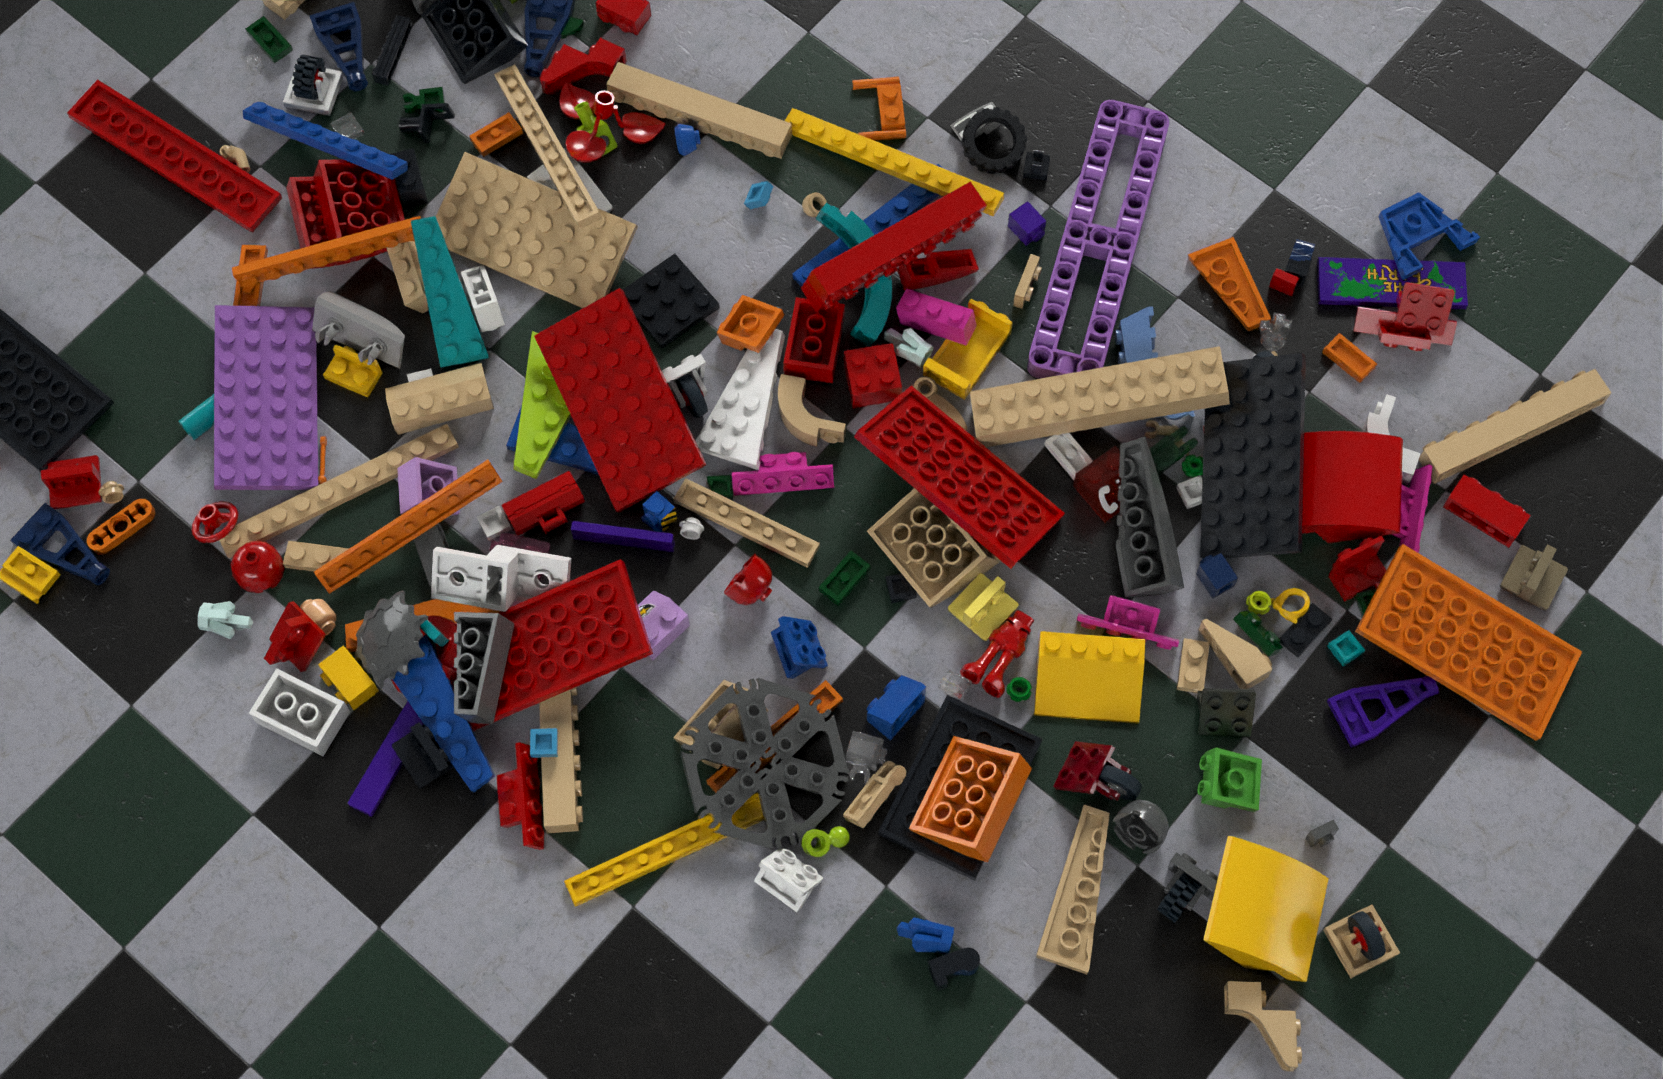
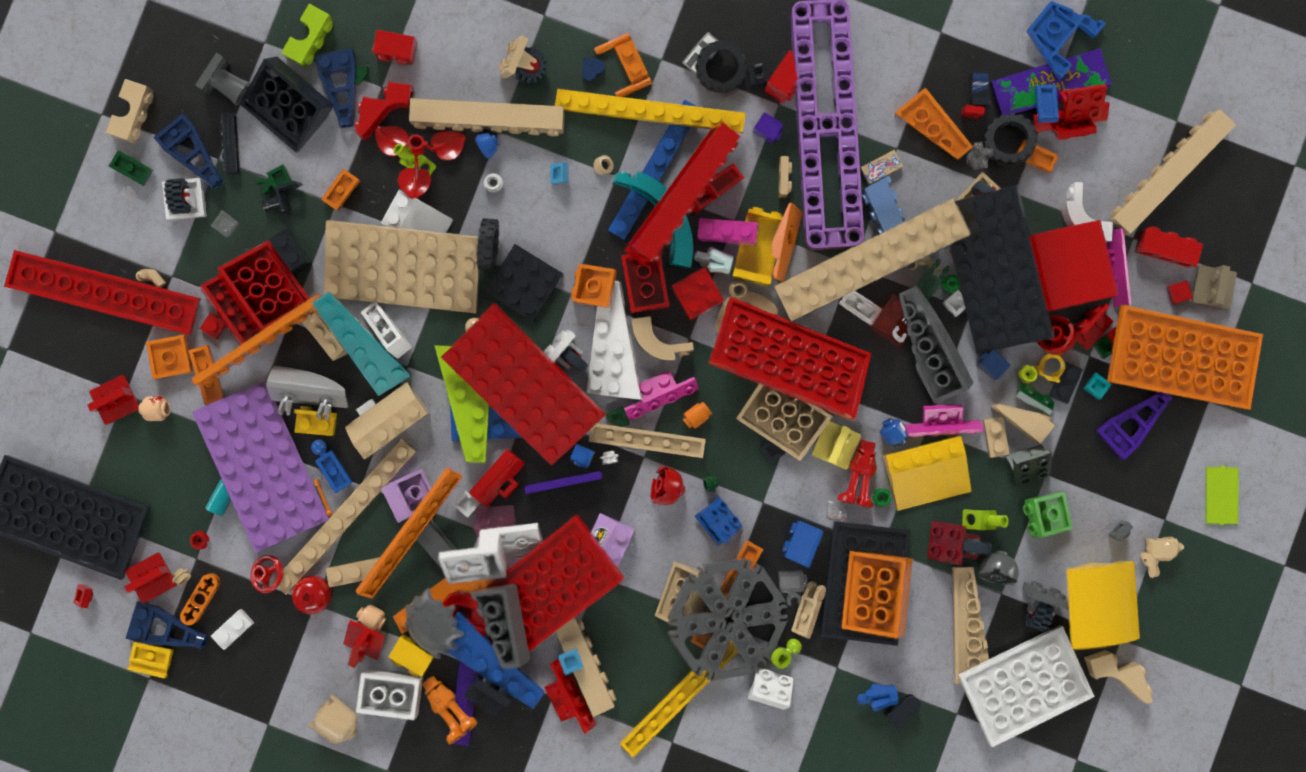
camera: 20 degrees left, 20 degrees up
(129, 272) = (113, 400): none -> red bracket
(142, 575) = (232, 629): none -> white plate
(148, 454) = (195, 537): none -> red plate
(172, 294) = (154, 408): none -> light nougat head
(215, 246) = (169, 357): none -> orange plate
(216, 719) = (335, 721): none -> tan cylinder
(220, 620) = (300, 646): light aqua rock -> none
(282, 231) = (213, 326): none -> red plate
(325, 140) = (213, 244): blue plate -> none
(348, 427) = (331, 466): none -> blue plate
(359, 745) = (441, 699): none -> orange piece
(433, 633) = (461, 610): teal tile -> none
(547, 147) = (387, 194): tan plate -> none
(642, 236) = (487, 244): none -> black tyre
(673, 177) = (491, 177): none -> white plate
(763, 66) = (523, 62): none -> plate
(806, 599) = (710, 483): none -> dark green plate
(819, 513) = (697, 415): none -> orange brick
(841, 101) = (592, 68): none -> dark blue tile
(844, 578) = (732, 458): dark green plate -> none
(1004, 347) = (785, 240): none -> orange piece
(1060, 174) = (783, 81): none -> red slope
(1061, 613) = (893, 432): none -> blue head
(1130, 989) = (1026, 685): none -> white plate
(1144, 758) = (984, 519): none -> lime bracket
(1163, 307) = (881, 167): none -> tile
(1309, 567) = (1064, 337): none -> red cylinder
(1322, 305) = (1016, 121): none -> black tyre
(1361, 941) = (1168, 597): tan plate -> none
(1366, 876) = (1159, 550): none -> tan animal
(1377, 298) = (1046, 103): none -> blue tile
(1474, 838) = (1221, 495): none -> lime piece
(1487, 570) = (1179, 292): none -> red tile

